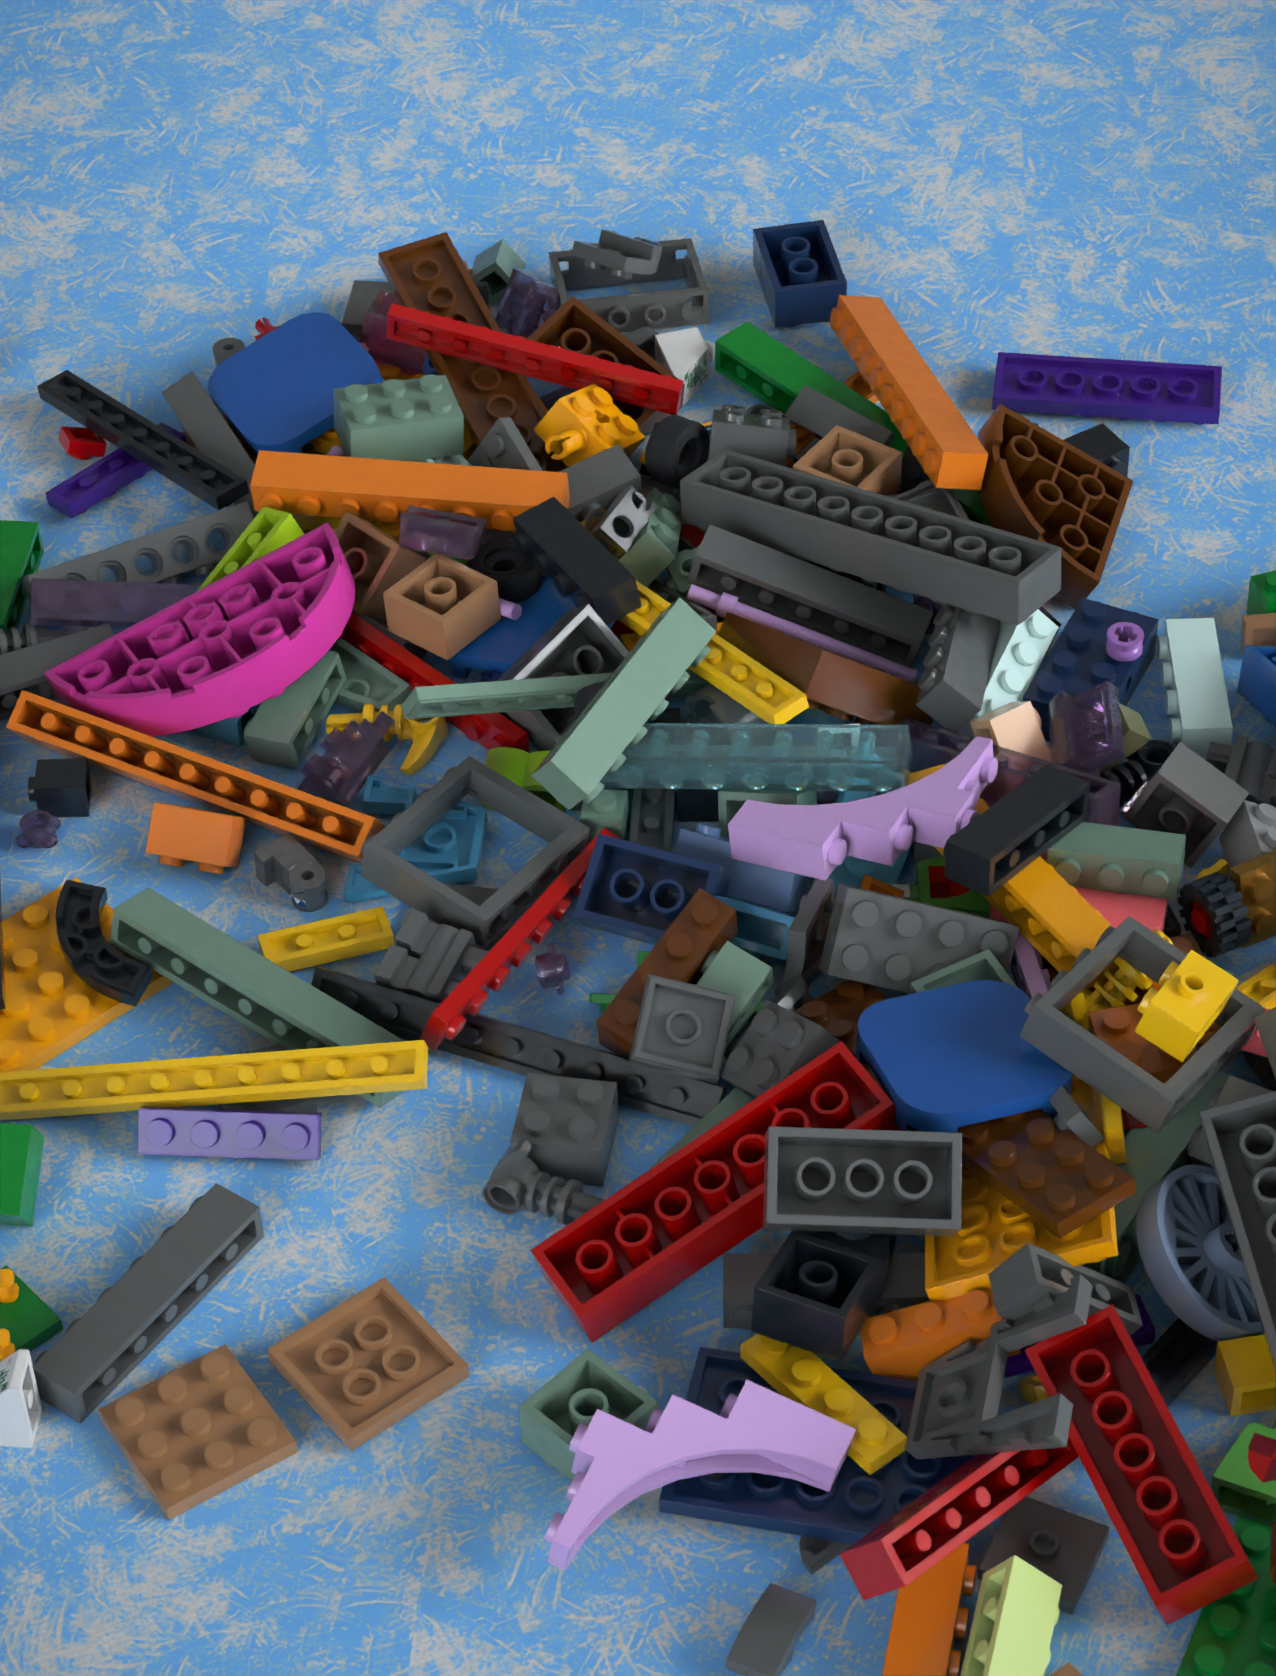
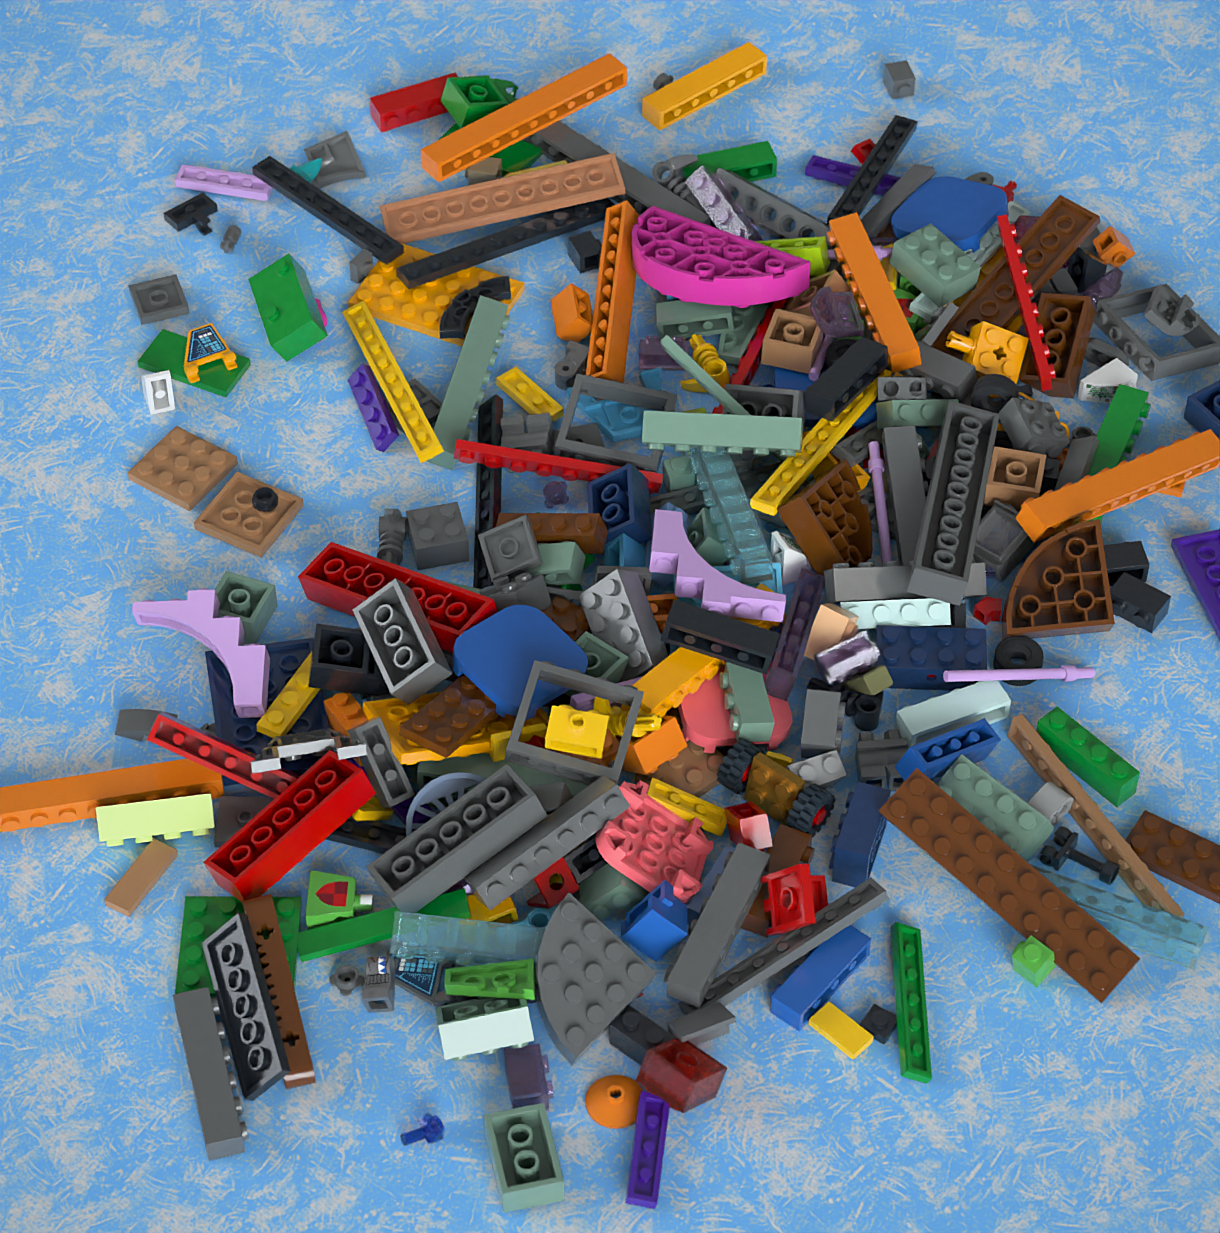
camera: 65 degrees right, 5 degrees up
(38, 830) = (552, 256): clear purple plate -> none
(147, 1302) = (249, 418): dark grey brick -> none
(368, 1321) = (264, 499): none -> black plate
(496, 268) = (1138, 269): sand green brick -> none
(1074, 1118) = (494, 719): dark grey plate -> none
(1124, 650) = (943, 647): medium lavender bush -> none
(1131, 584) = (1018, 647): none -> black tyre
(1173, 566) = (1066, 673): none -> lavender bar

